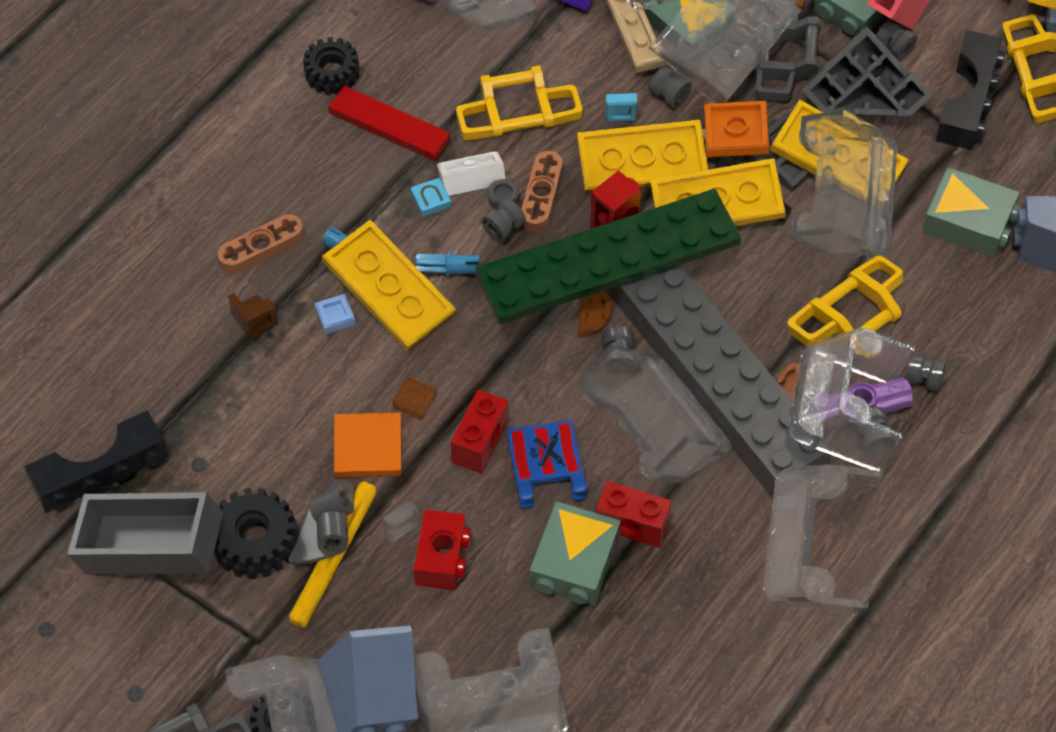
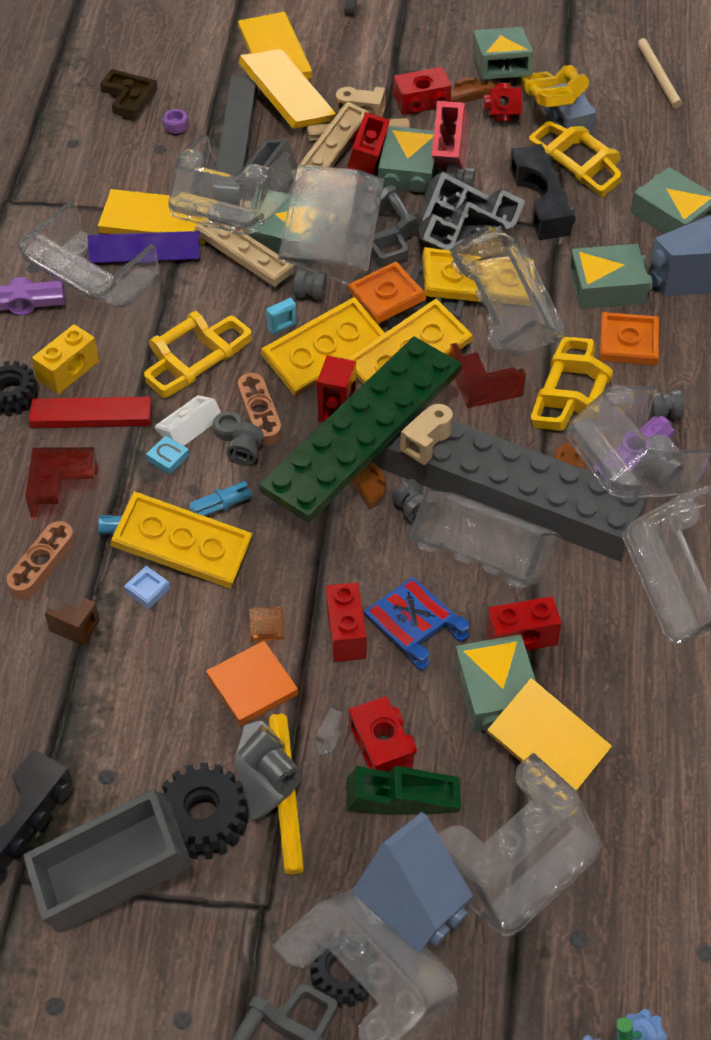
camera: 30 degrees left, 5 degrees down
(317, 161) = (52, 465): none -> clear red panel
(395, 60) = (65, 359): none -> yellow brick
(429, 605) = (402, 791): none -> dark green slope
(580, 624) = (550, 730): none -> yellow tile
(660, 288) = (425, 431): none -> tan leg
(762, 265) = (485, 388): none -> clear red panel
(946, 286) = (629, 338): none -> orange tile

